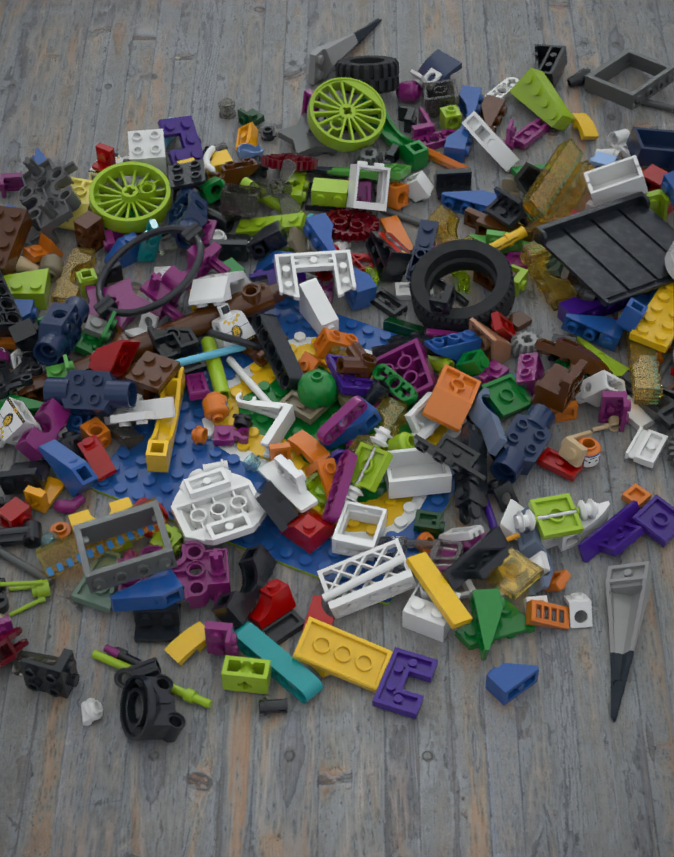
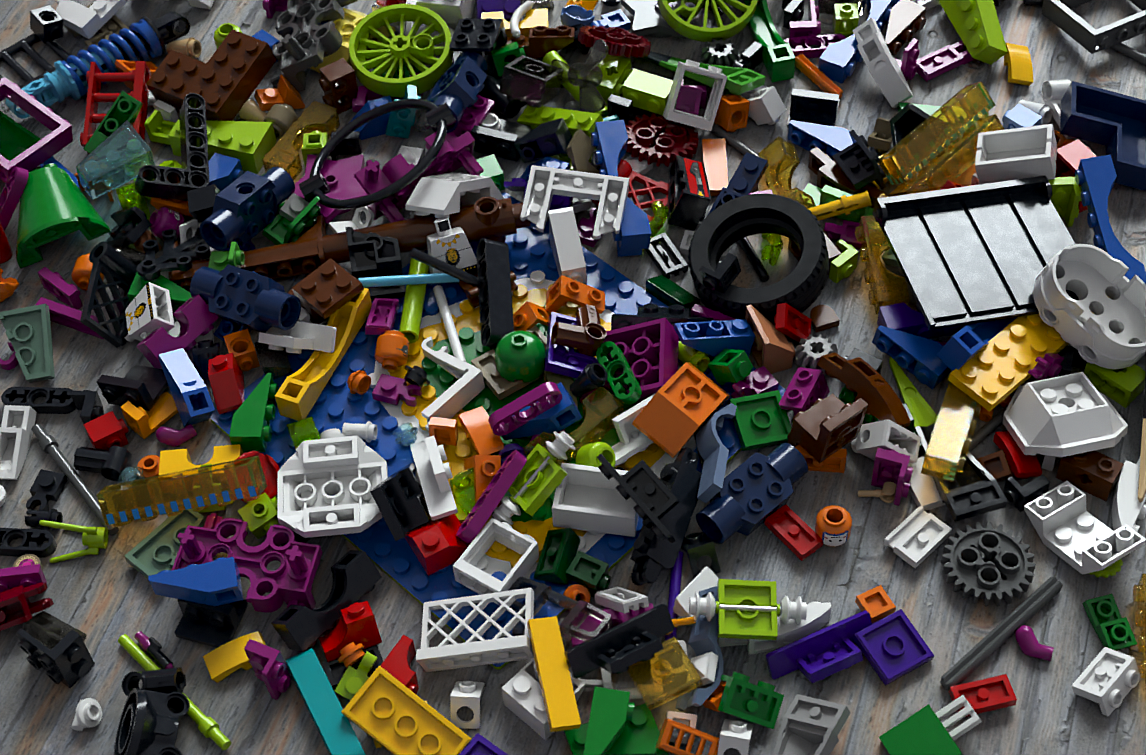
camera: 20 degrees right, 5 degrees up
(114, 357) = (291, 259): red slope -> none
(117, 524) = (186, 483): dark grey window -> none
(130, 475) = (252, 419): none -> green slope
(172, 480) = (303, 431): none -> clear neon green bracket
(246, 674) = (280, 720): lime brick -> none
(278, 148) = (613, 19): none -> plate
(280, 617) = (351, 654): none -> orange plate
(290, 636) = (355, 679): none -> lime plate
(312, 206) = (622, 108): none -> black bracket
(362, 578) = (469, 630): white bar -> none
(376, 624) = (469, 695): none -> white bracket
(400, 517) = (557, 555): none -> dark green slope
(572, 450) = (812, 521): tan bracket -> none
(579, 576) = (750, 701): none -> green bracket

